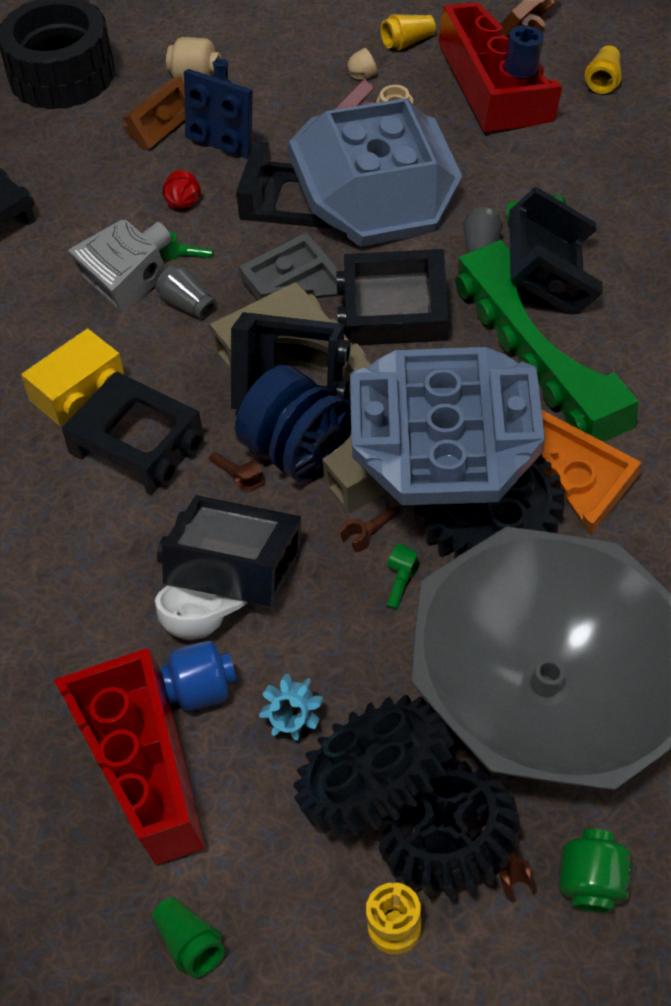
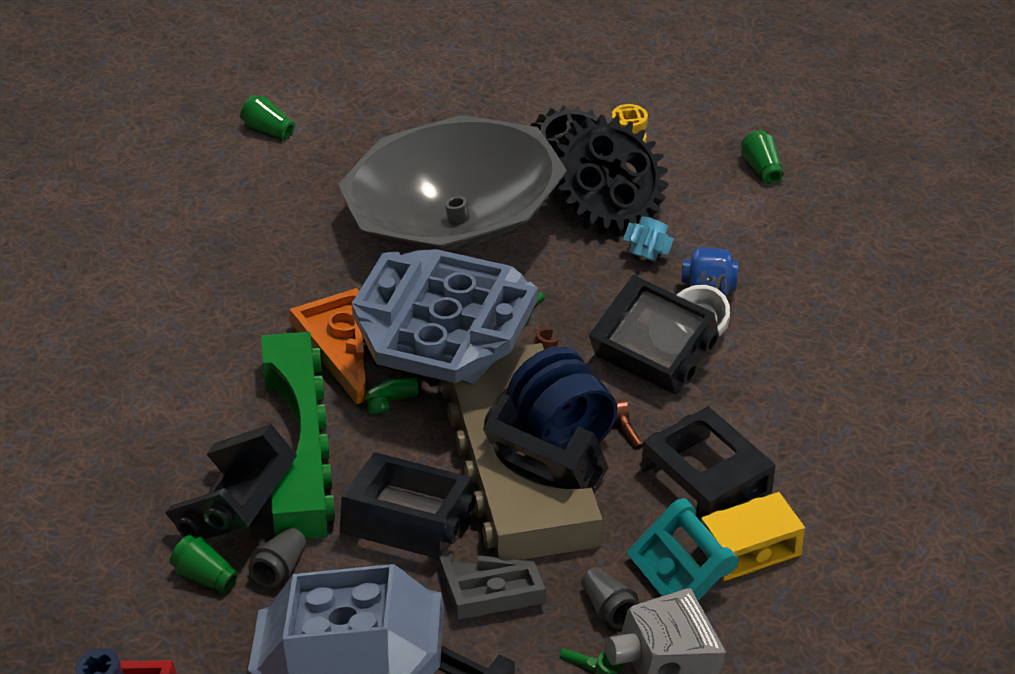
camera: 165 degrees left, 10 degrees down
(129, 330) = (669, 564): none -> teal plate
(137, 749) = (770, 241): red wedge -> none
(595, 871) = (494, 106): green head -> none

